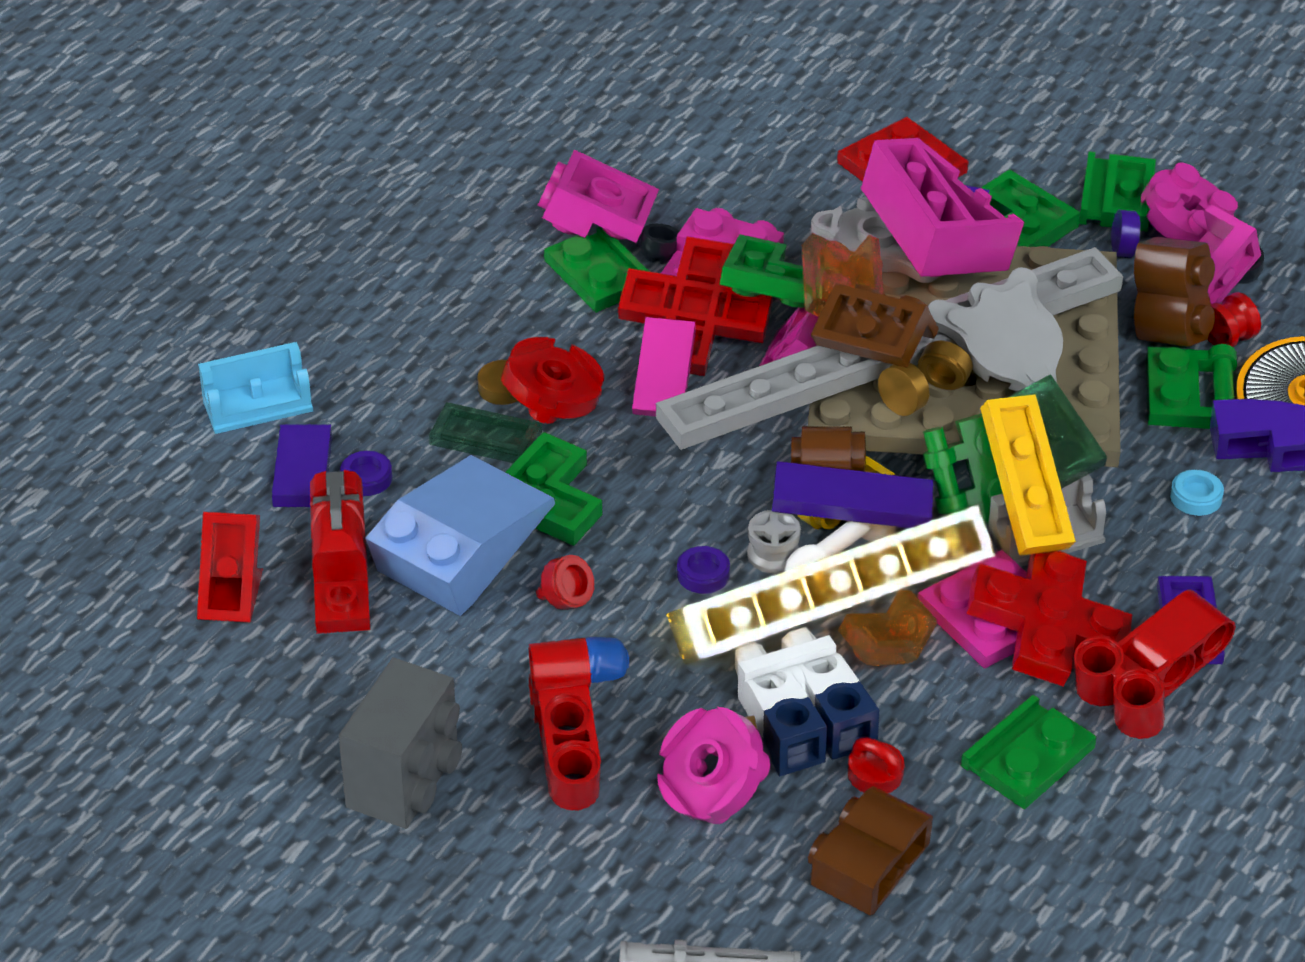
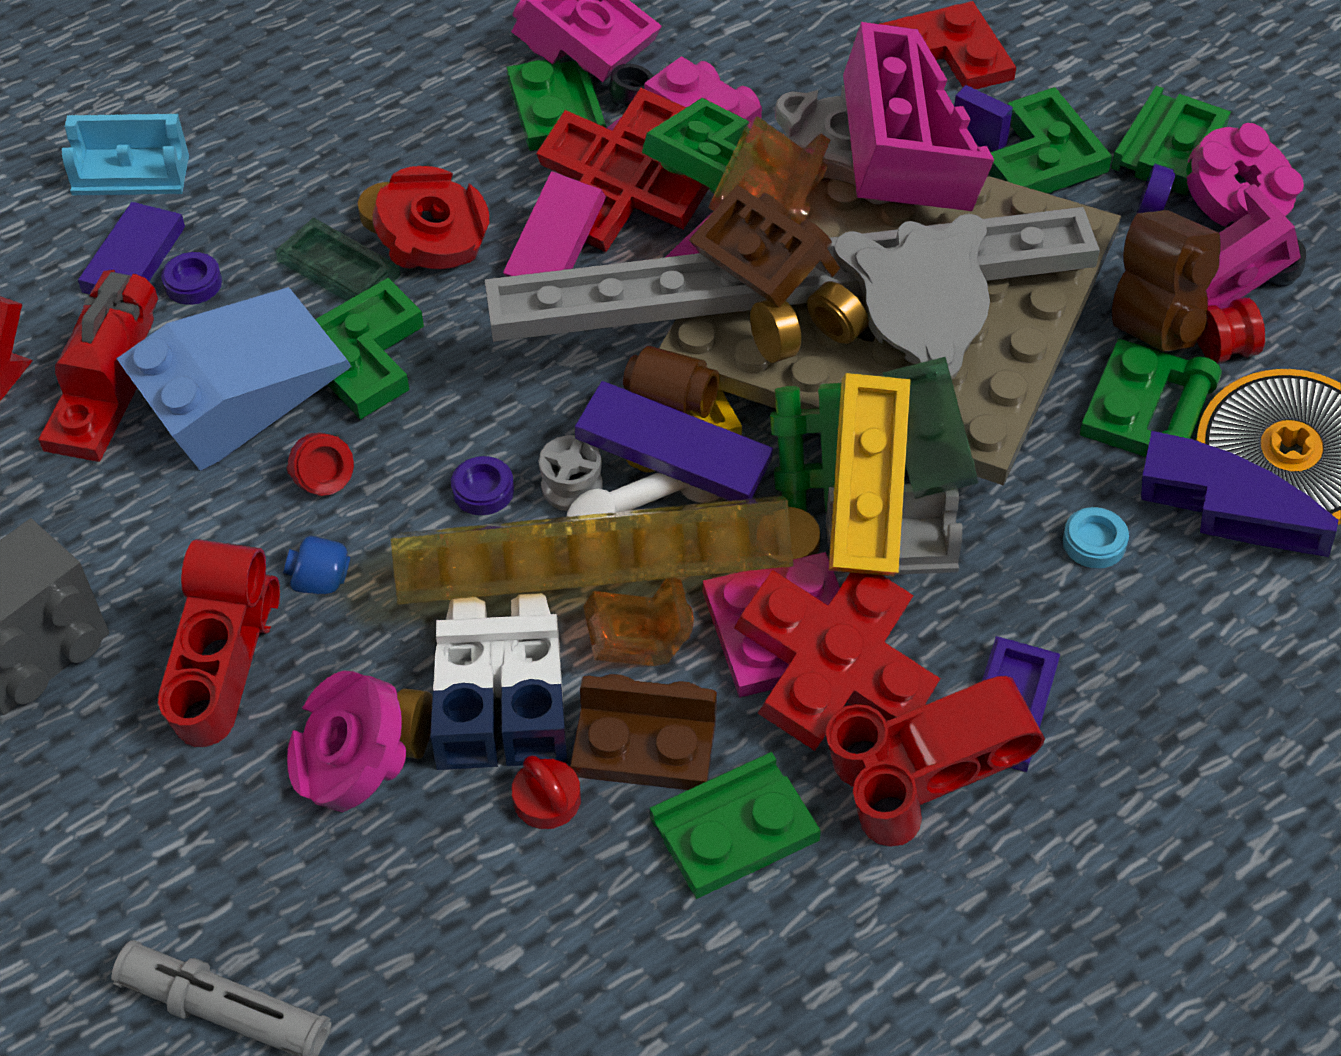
camera: 20 degrees right, 10 degrees up
(869, 849) = (477, 904): reddish brown brick -> none
(931, 704) = (644, 732): none -> reddish brown bracket

